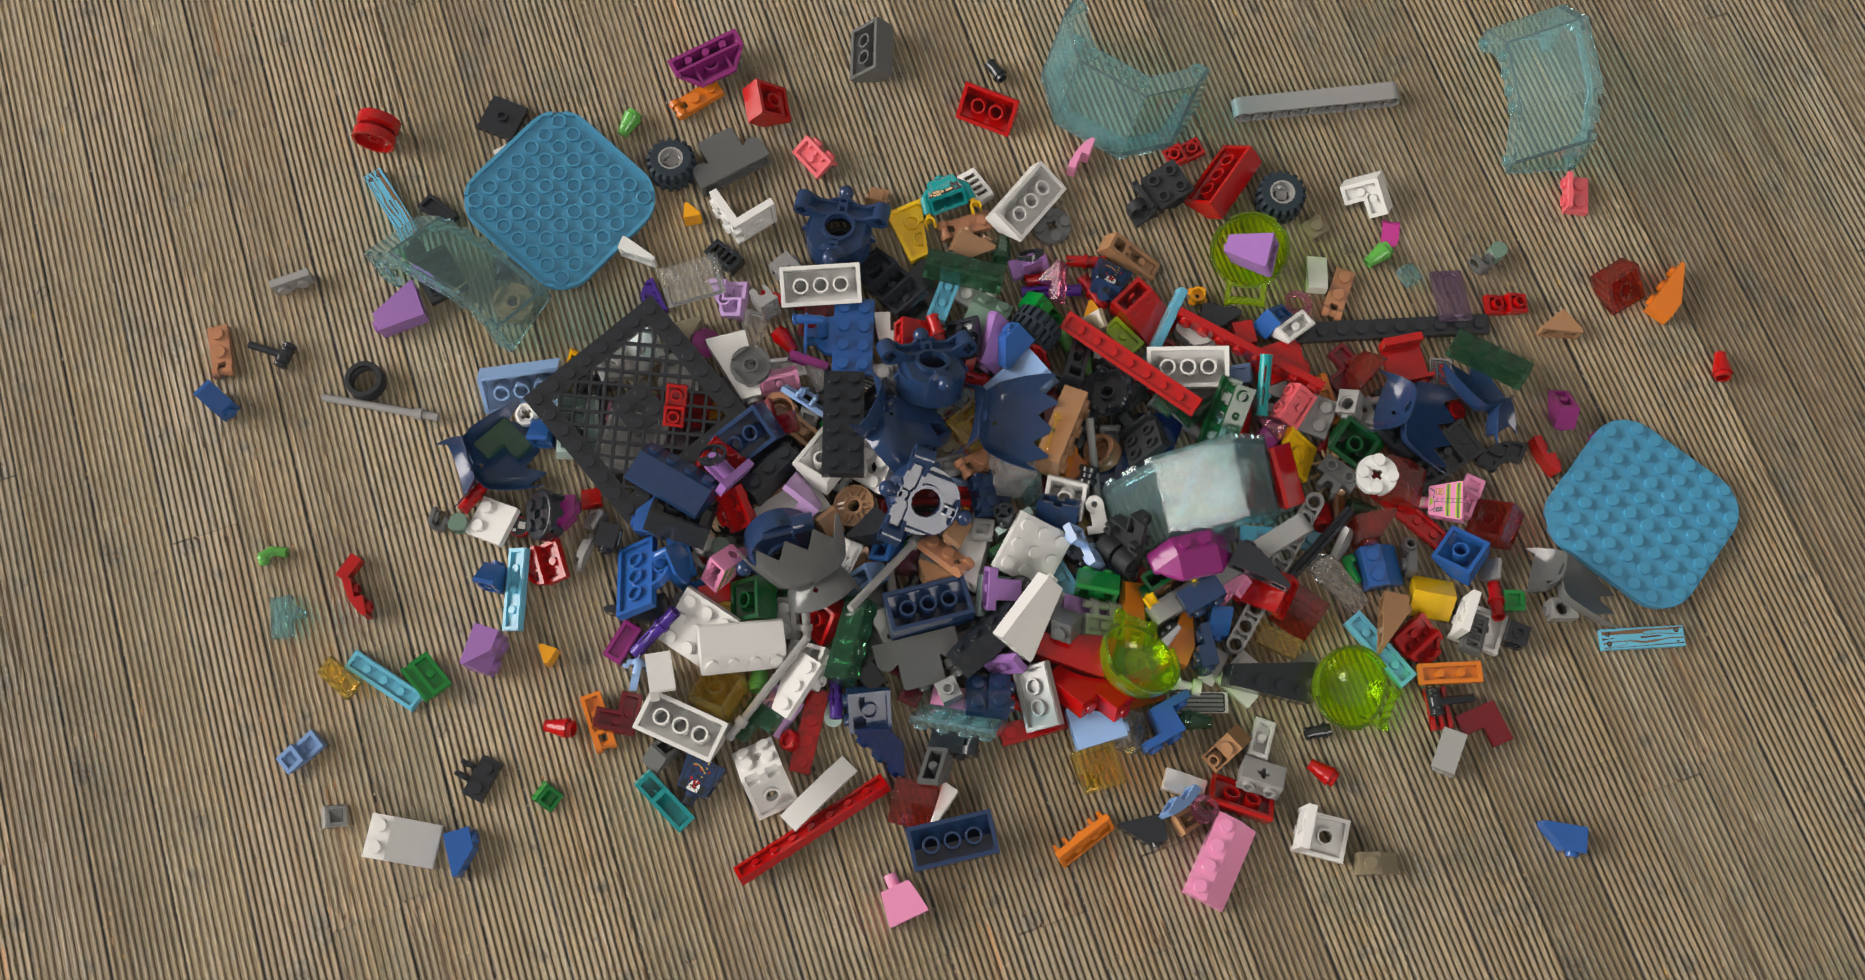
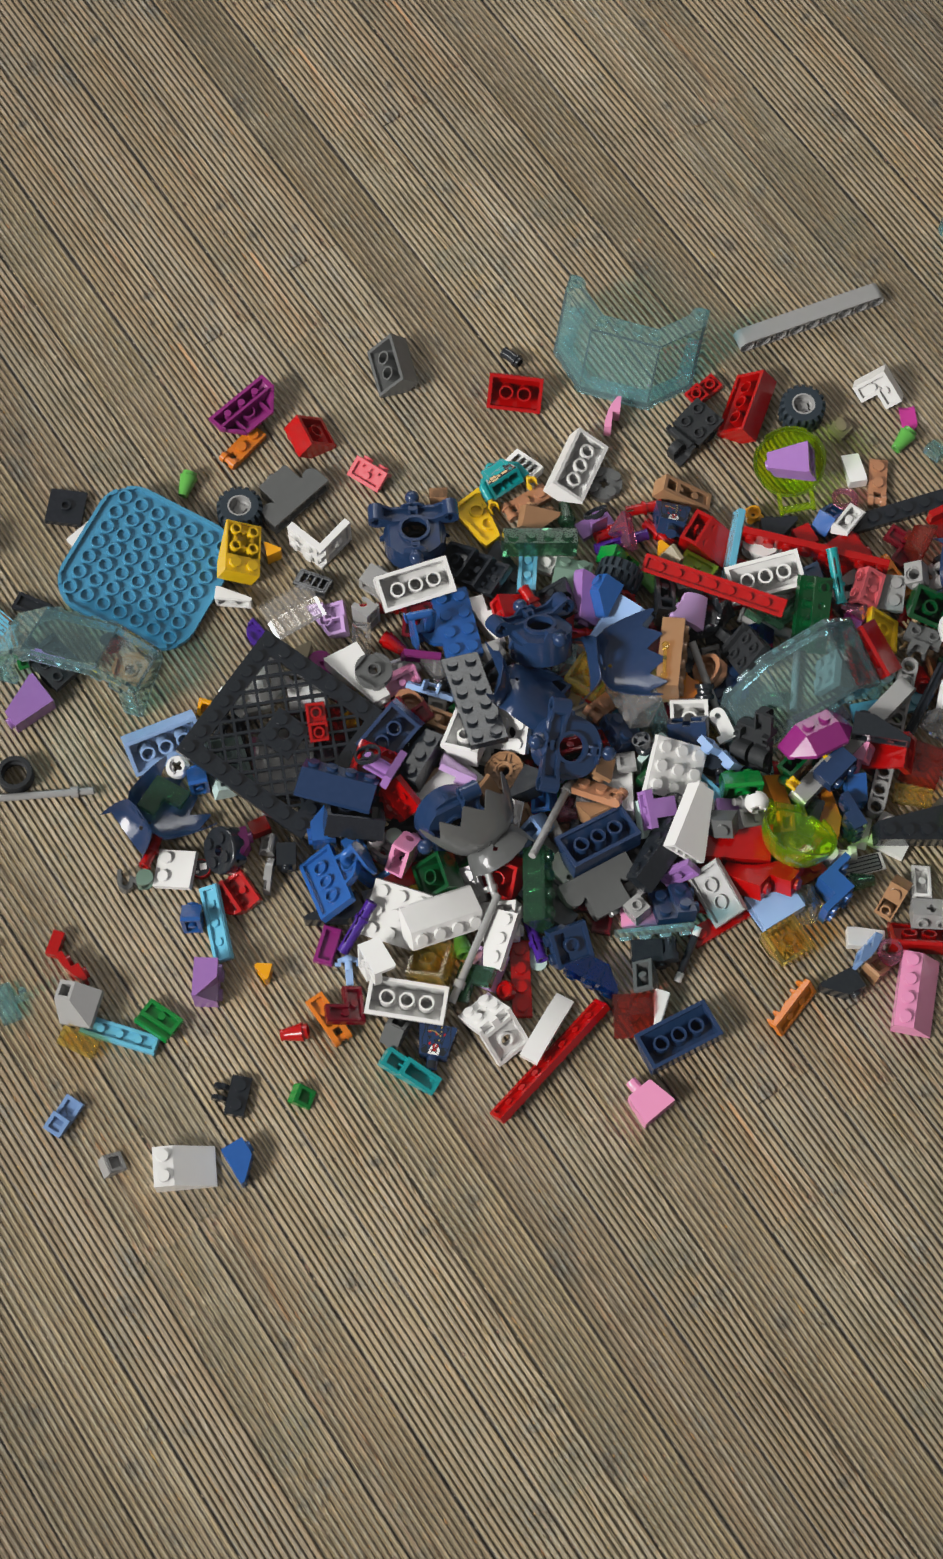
camera: 15 degrees left, 5 degrees down
(348, 638) = (77, 1003): none -> light grey slope
(657, 207) = (240, 553): none -> yellow slope
(989, 753) = (687, 954): none -> black bar
(1099, 384) = (692, 608): none -> lavender slope
(1106, 610) = (756, 802): none -> white piece

